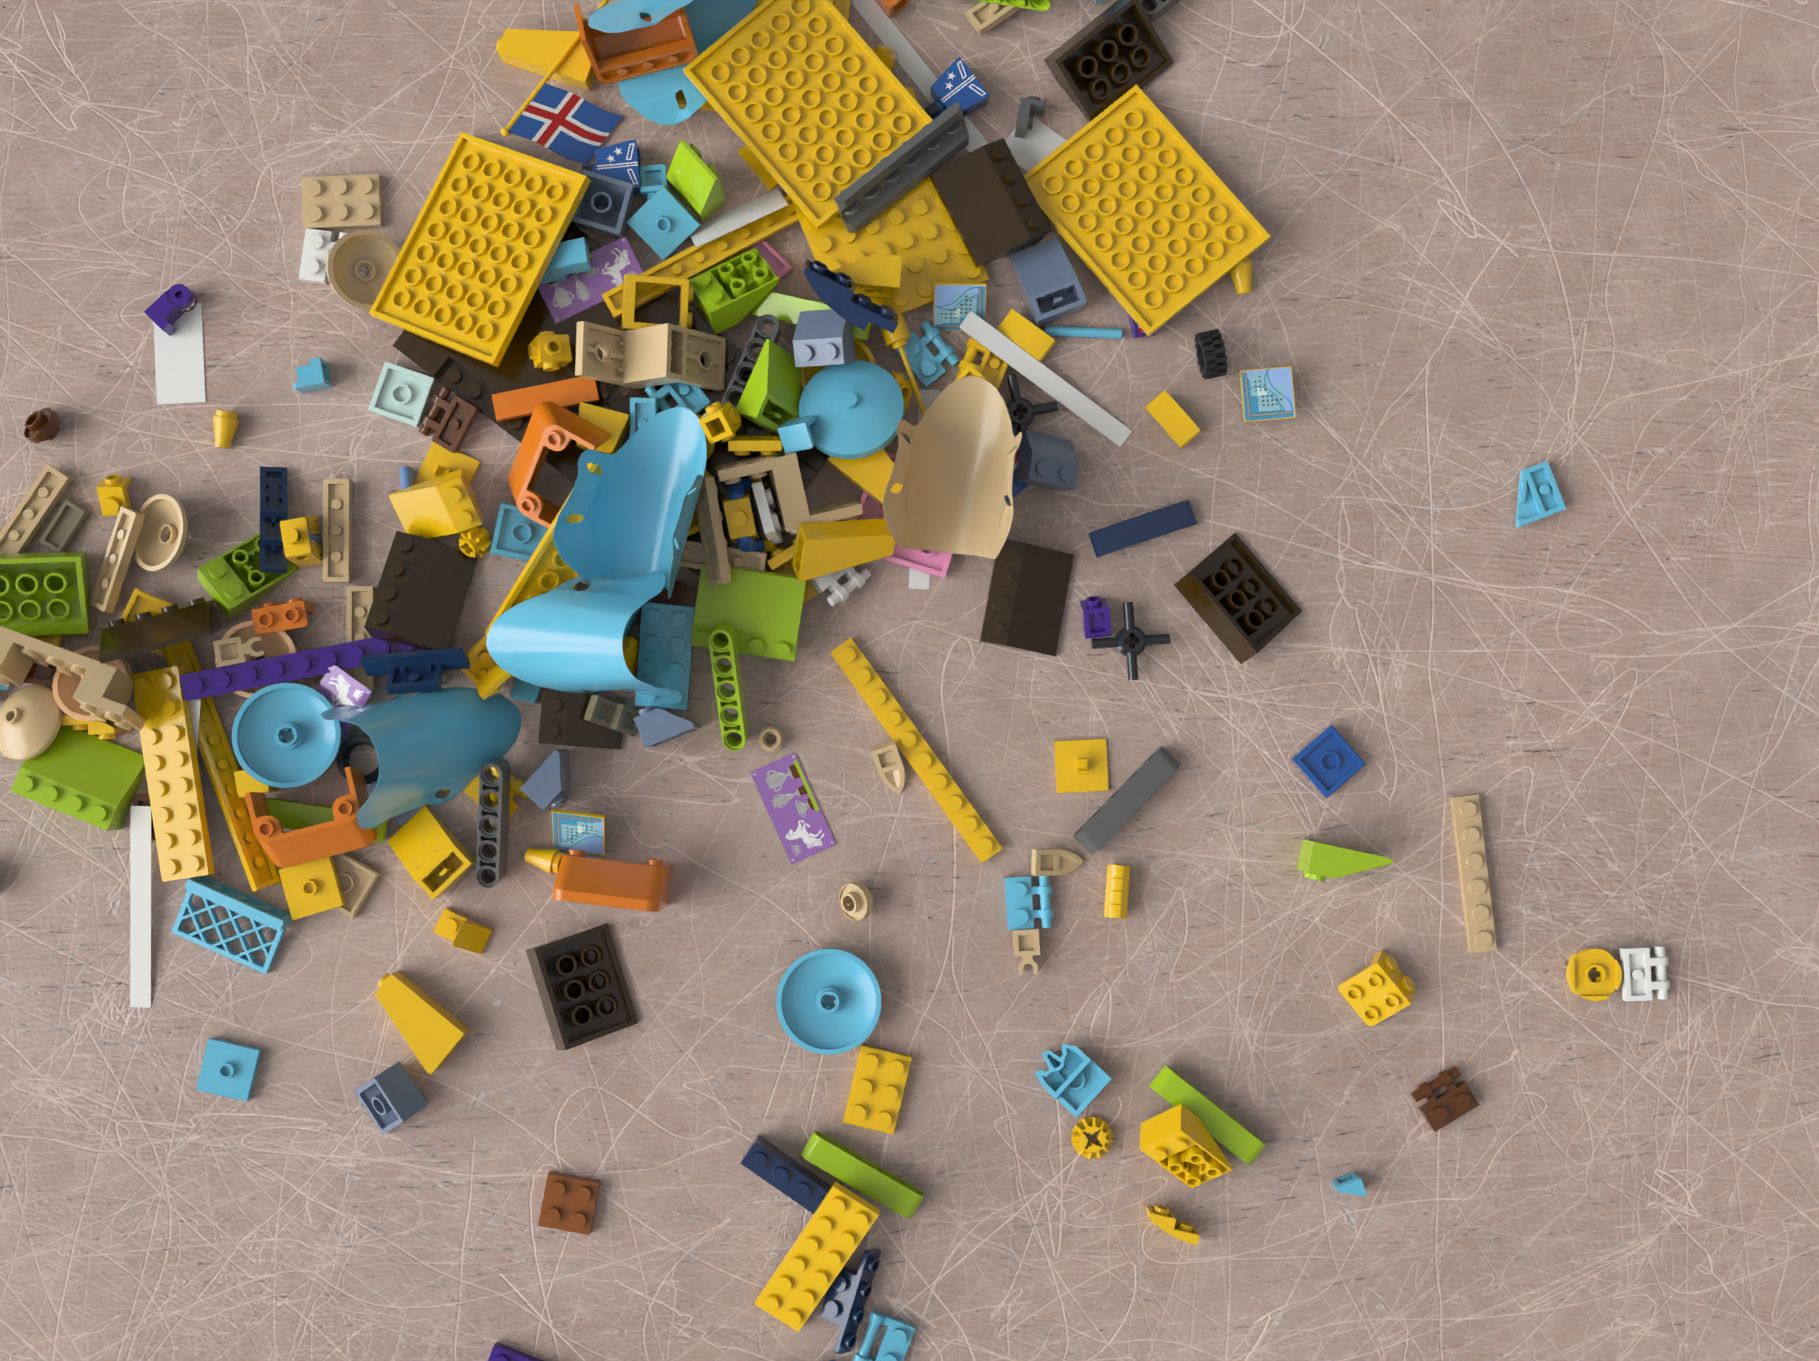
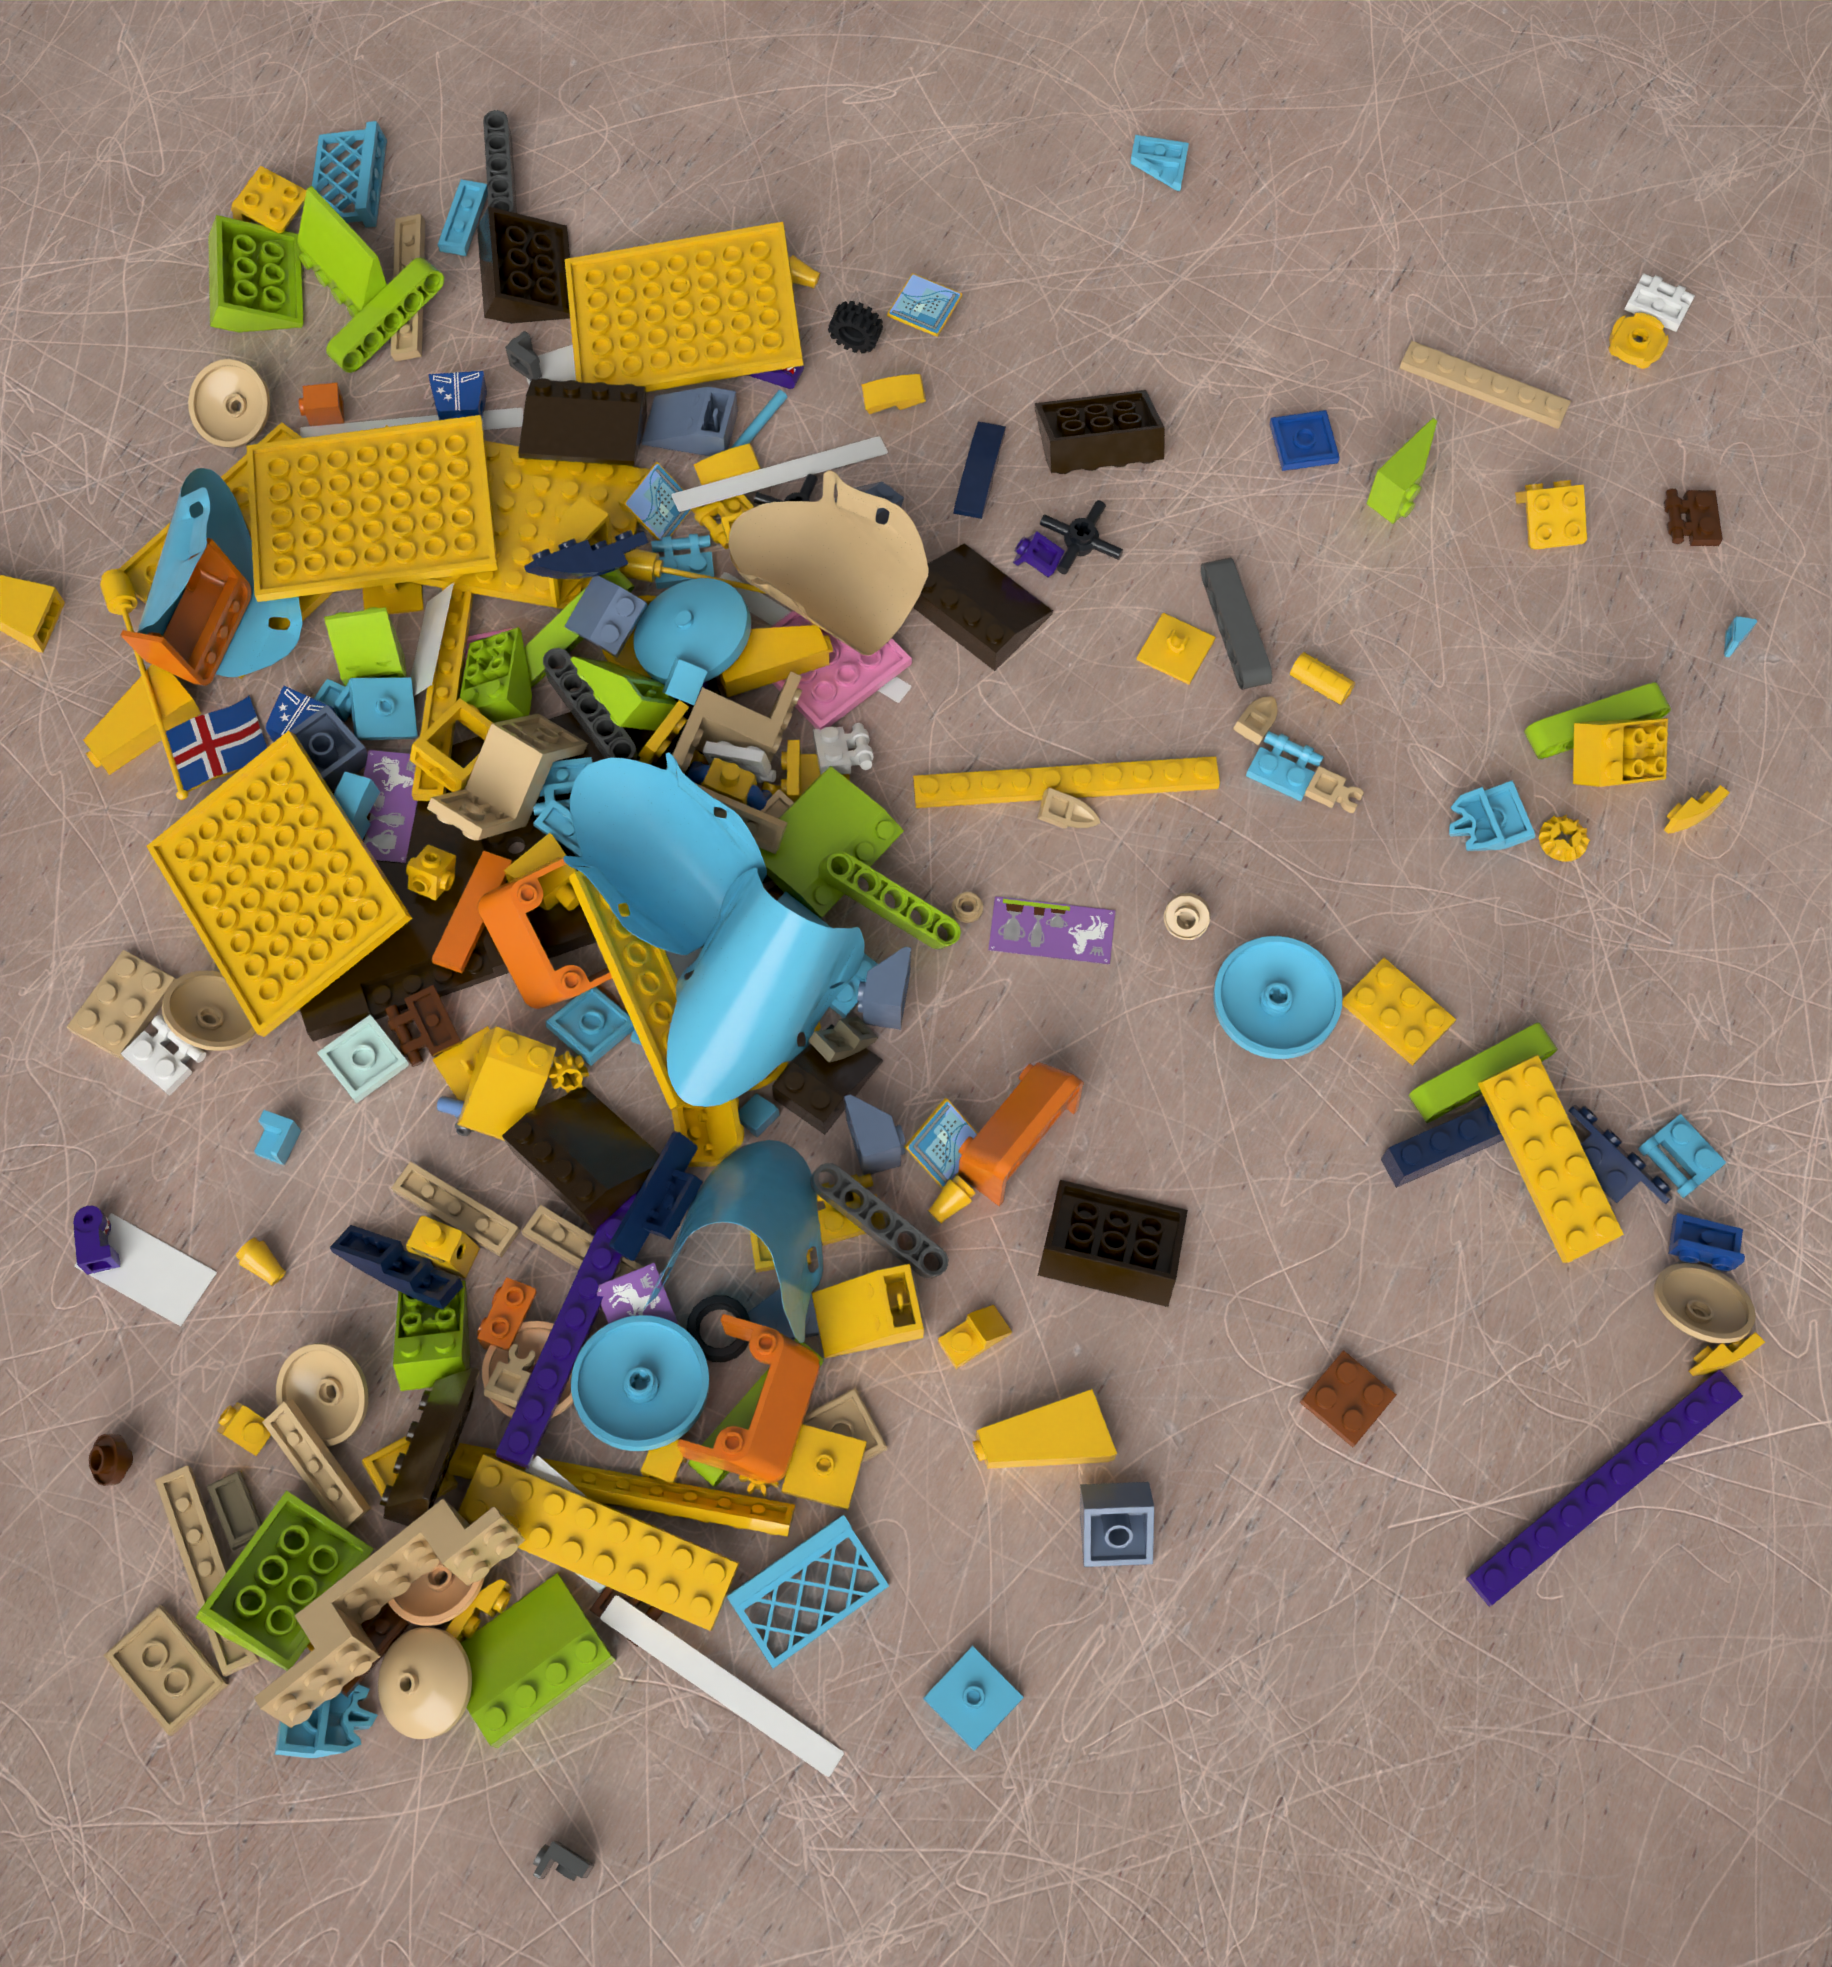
camera: 60 degrees left, 20 degrees down
(720, 422) = (632, 740): yellow brick -> none
(839, 545) = (817, 717): yellow slope -> none
(903, 169) = (498, 466): dark grey plate -> none

